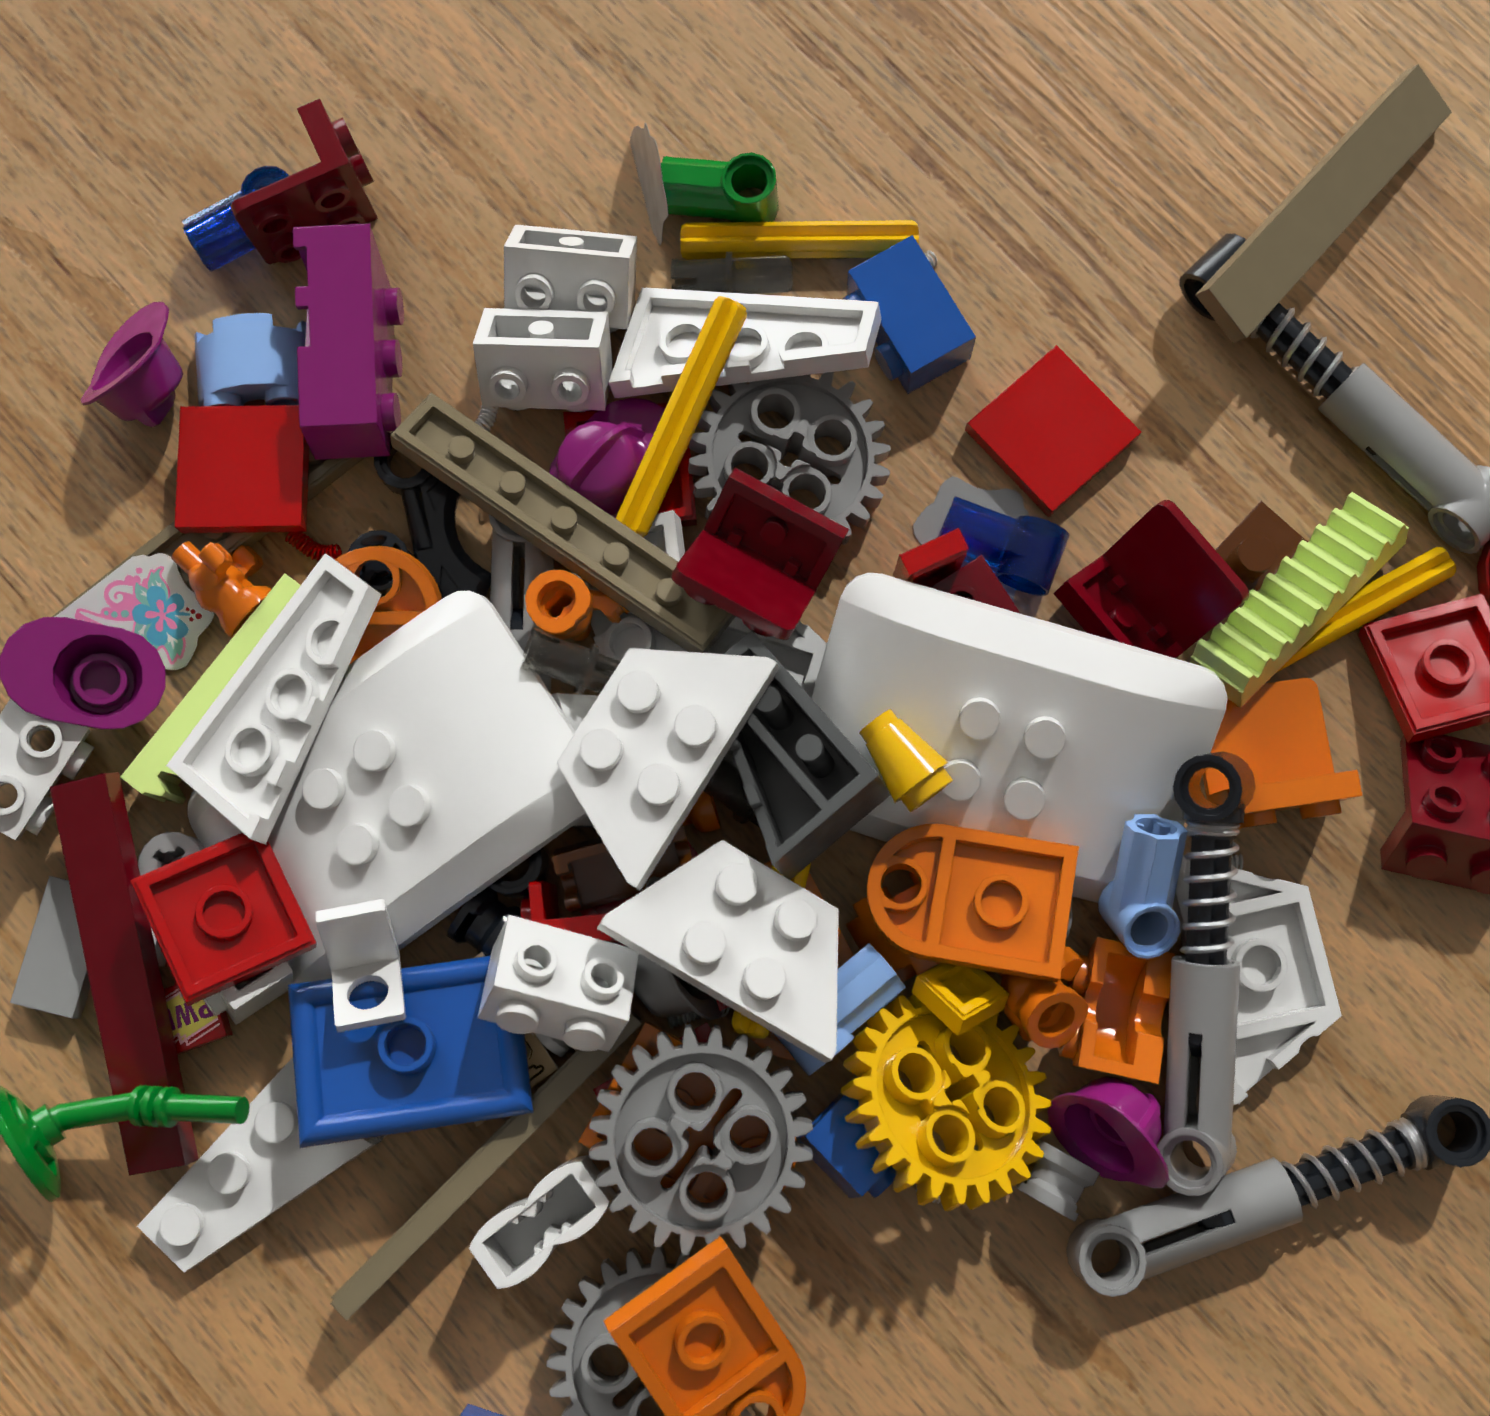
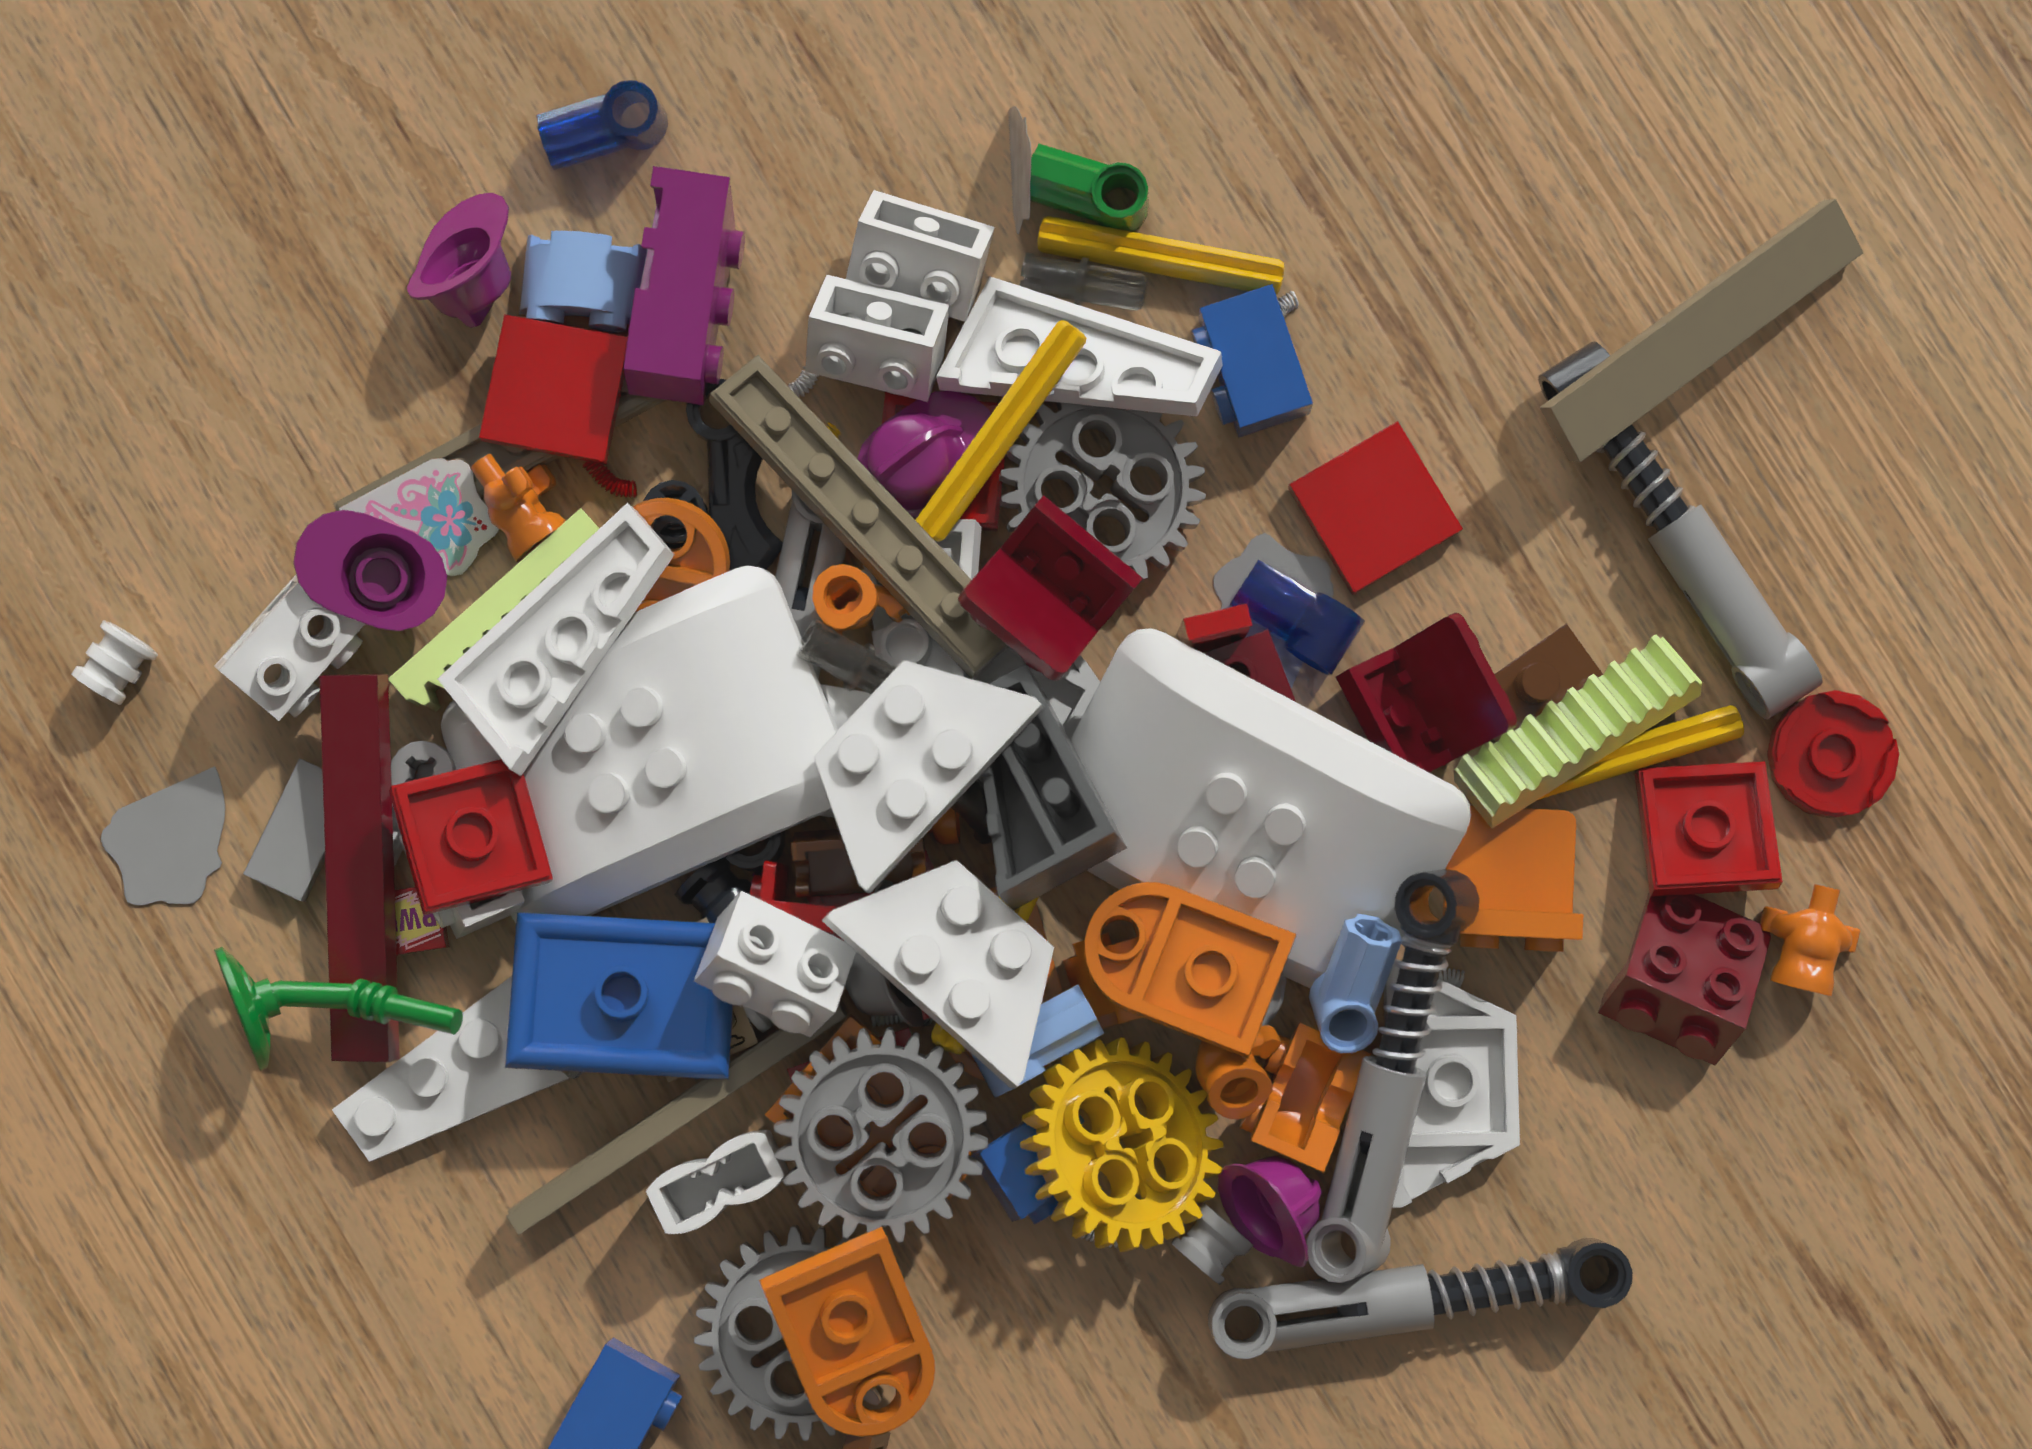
camera: 10 degrees right, 5 degrees up
(315, 196) = (685, 131): dark red bracket -> none
(362, 950) = (594, 894): white bracket -> none
(905, 761) = (1146, 819): yellow cone -> none
(960, 995) = (1154, 1052): yellow tile -> none

